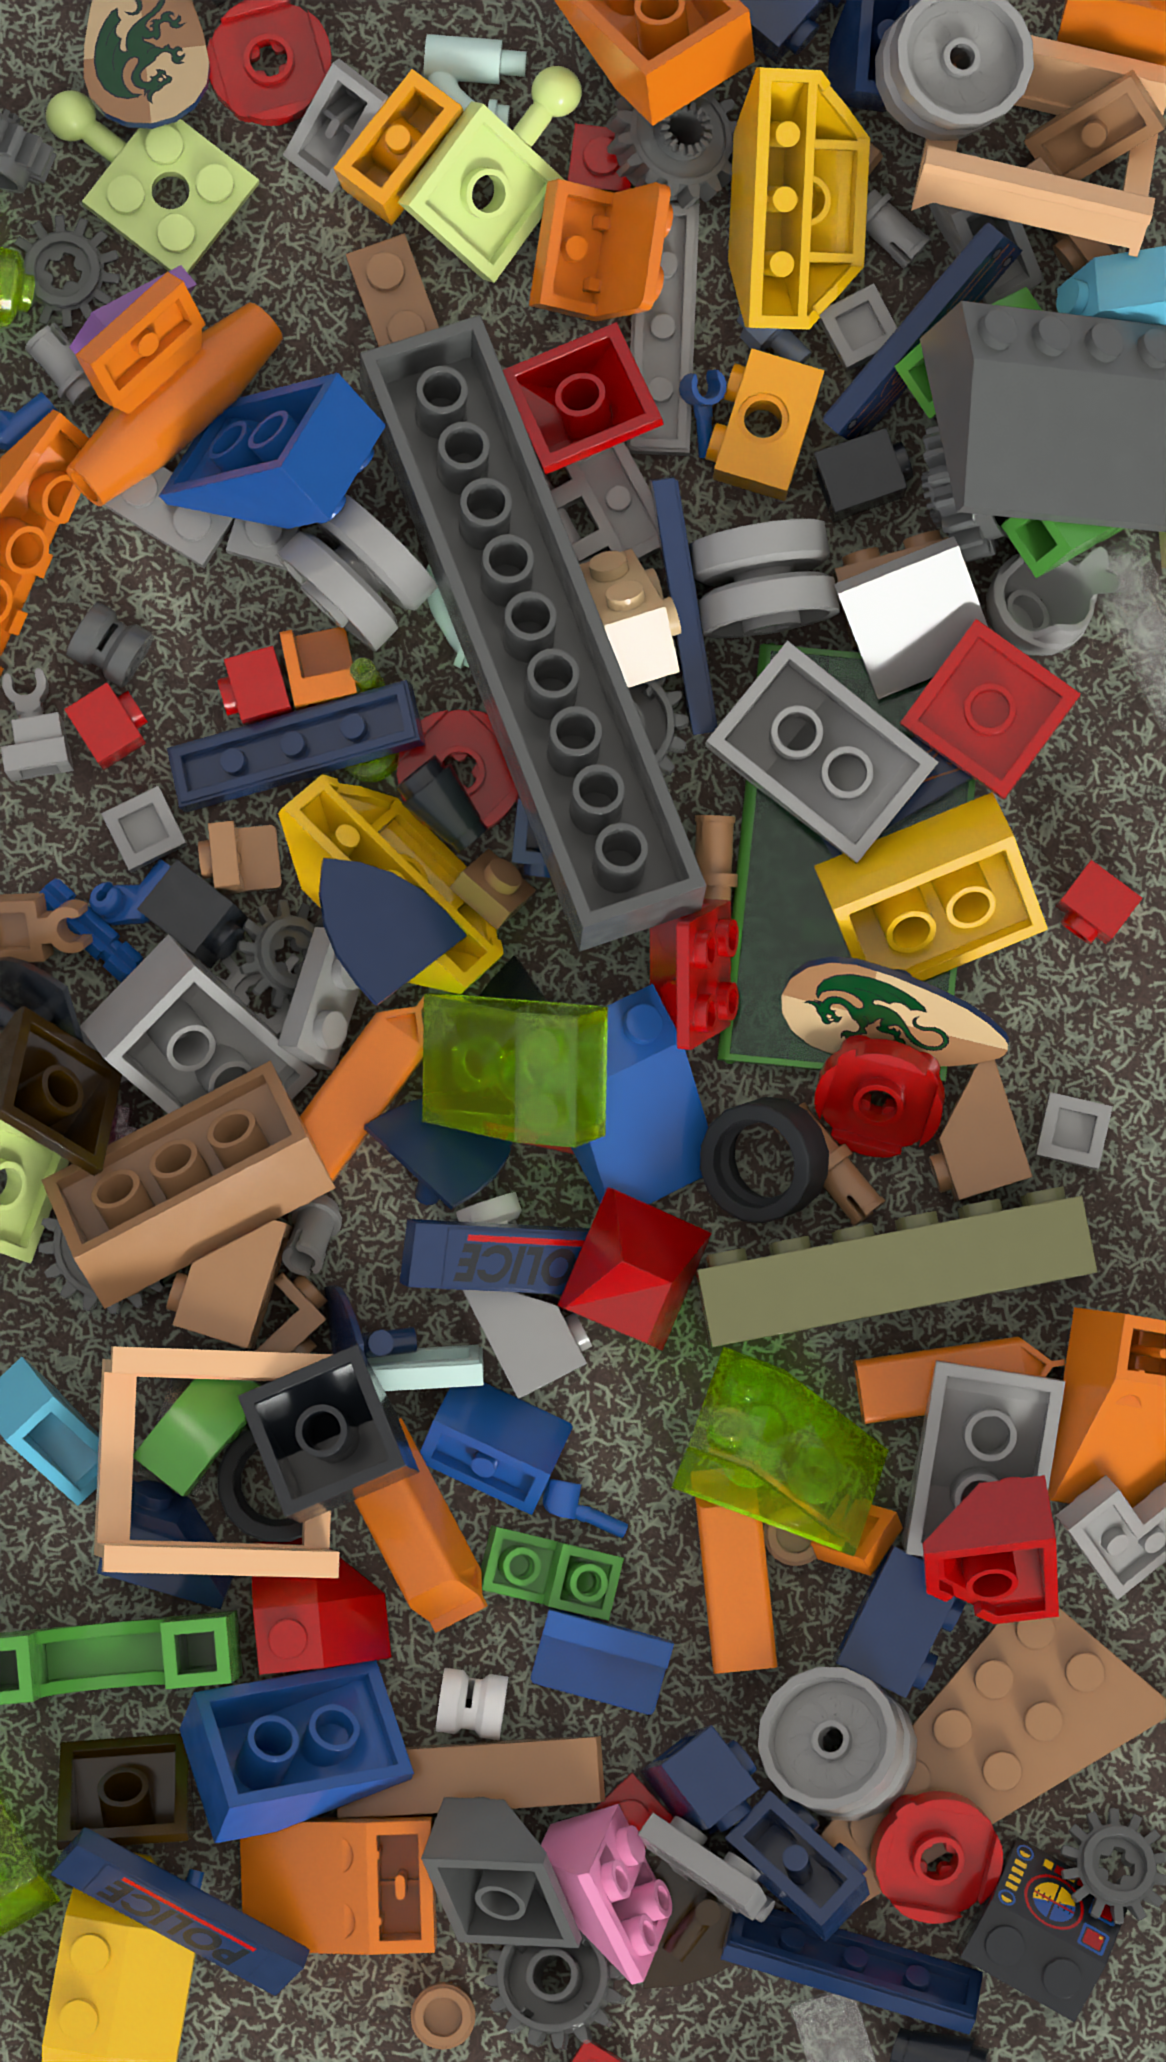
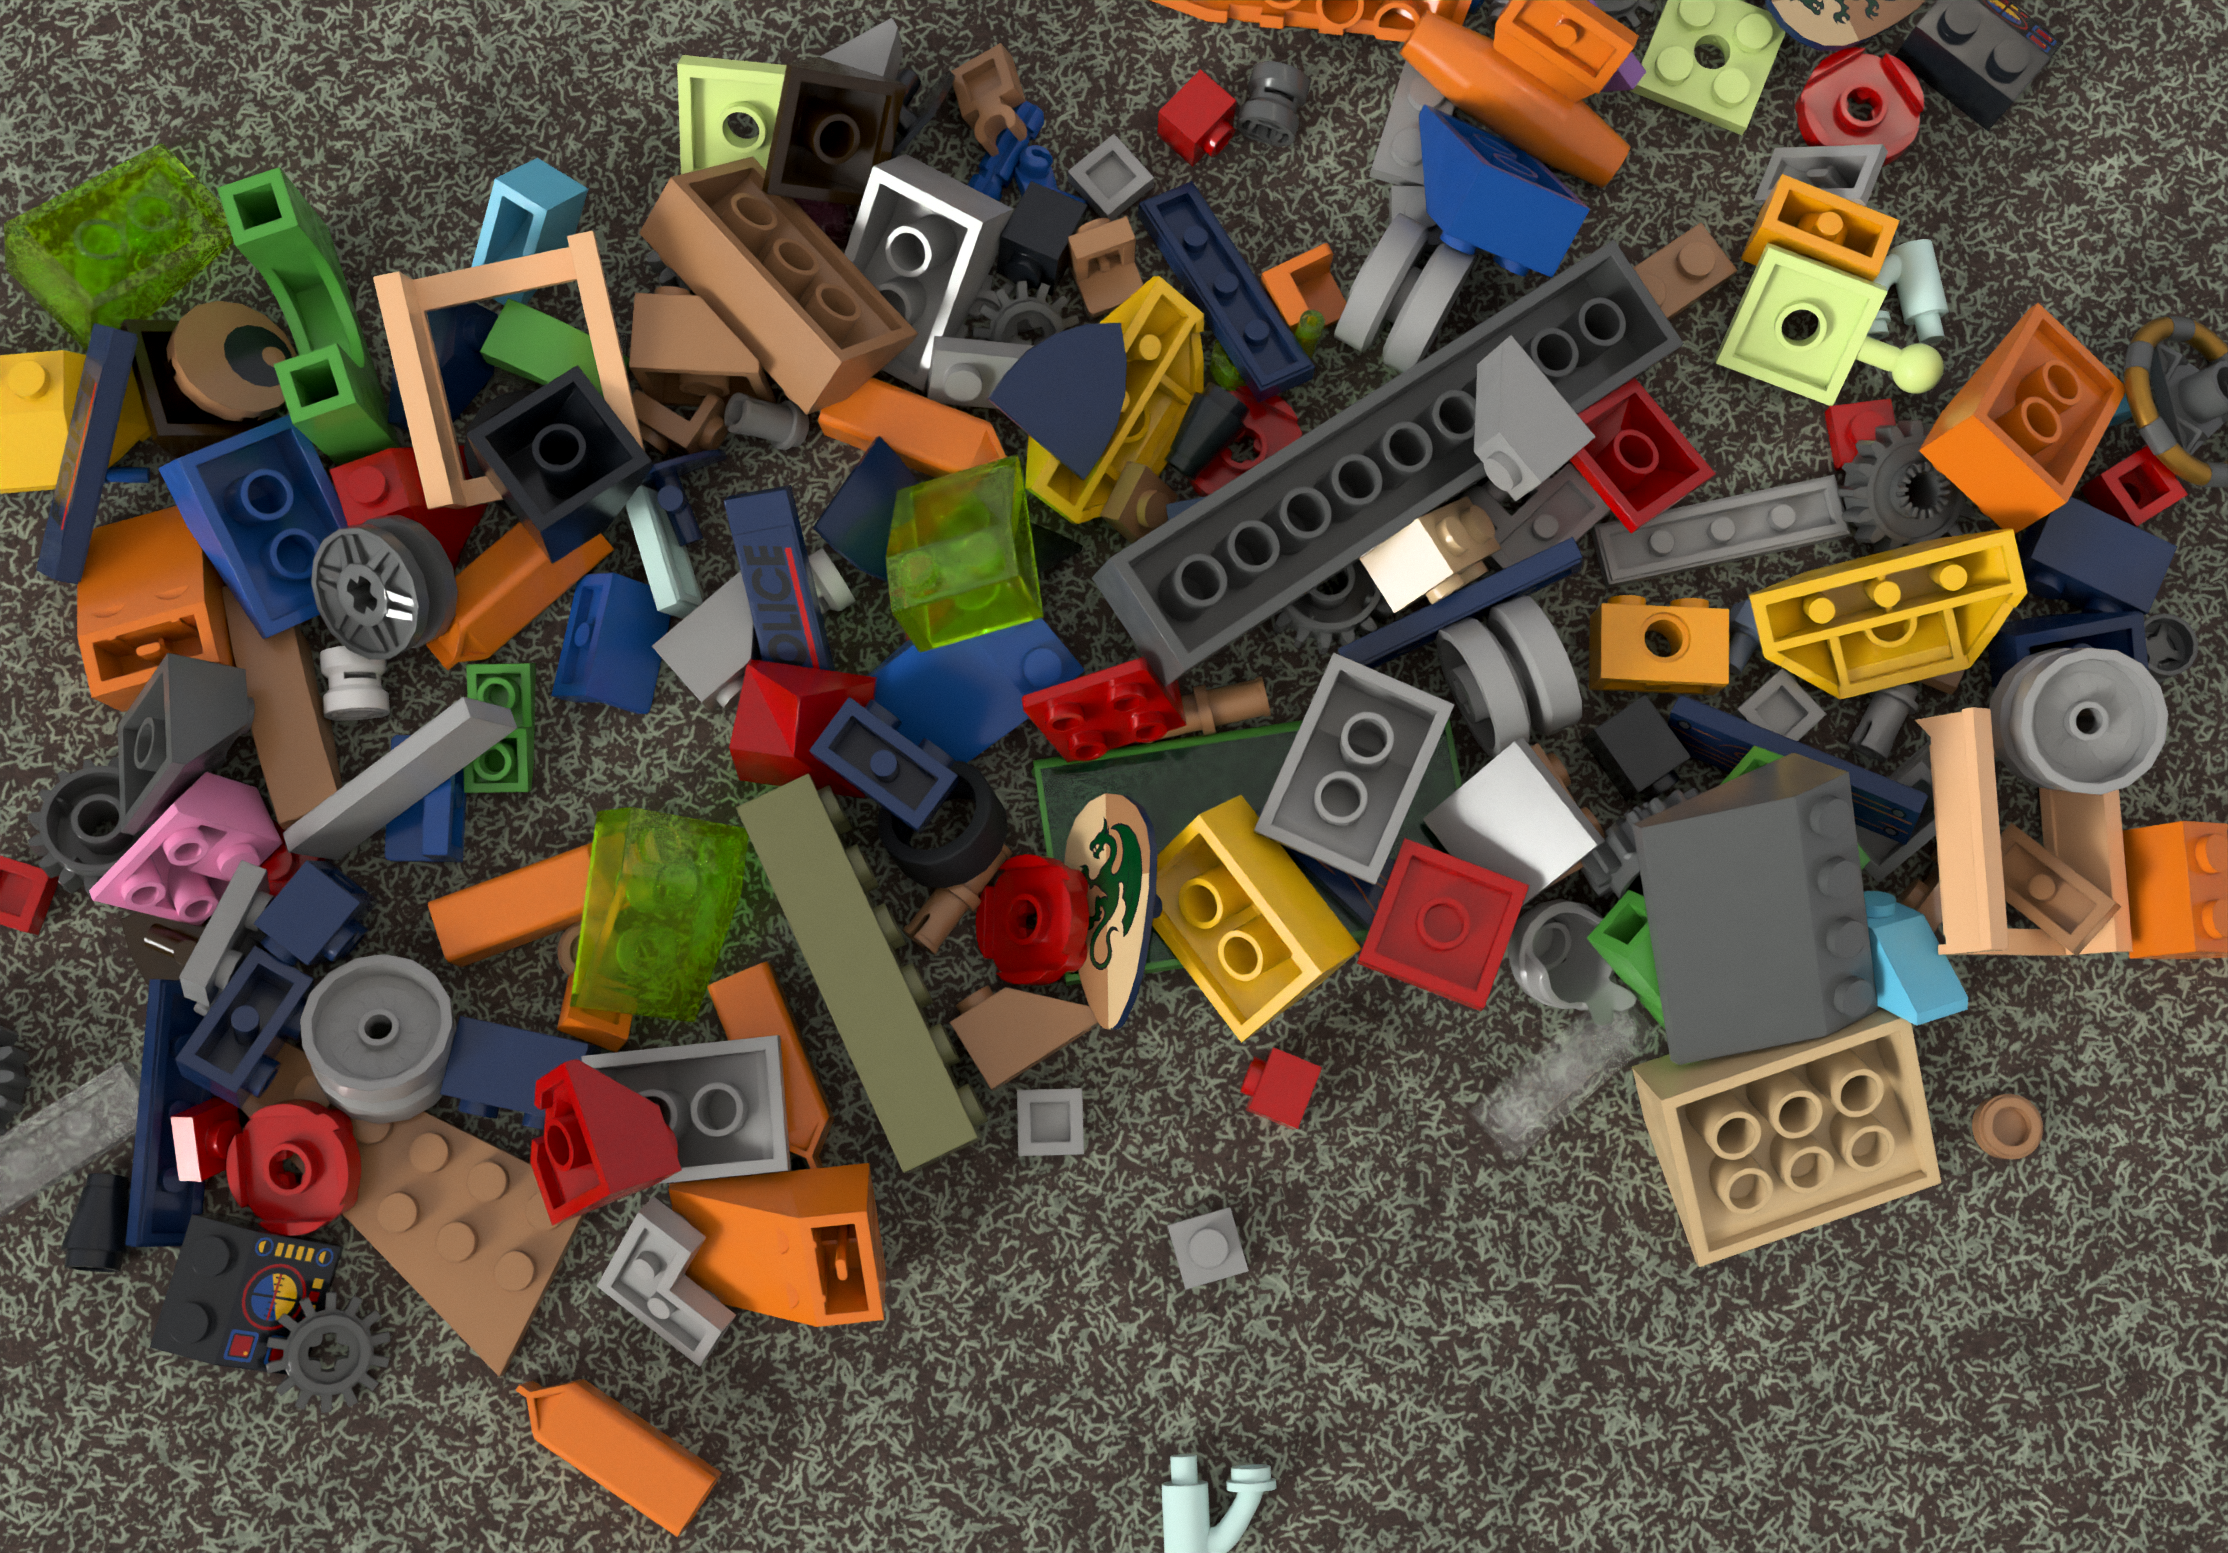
camera: 70 degrees right, 5 degrees down
(38, 737) = (1168, 62): light grey piece -> none
(112, 1752) = (228, 360): none -> medium nougat tile
(254, 686) = (1271, 236): red plate -> none
(398, 1642) = (384, 586): none -> dark grey wheel
(443, 2015) = (54, 735): medium nougat tile -> none
(538, 500) = (1522, 421): none -> light grey slope
(562, 1500) = (569, 721): blue hand -> none
(593, 1669) = (400, 779): none -> light grey tile
(600, 250) = (1778, 443): orange bracket -> none
(703, 405) = (1659, 583): blue hand -> none
(707, 1196) = (884, 764): none -> dark blue brick
(887, 1936) = (203, 1138): none -> red plate

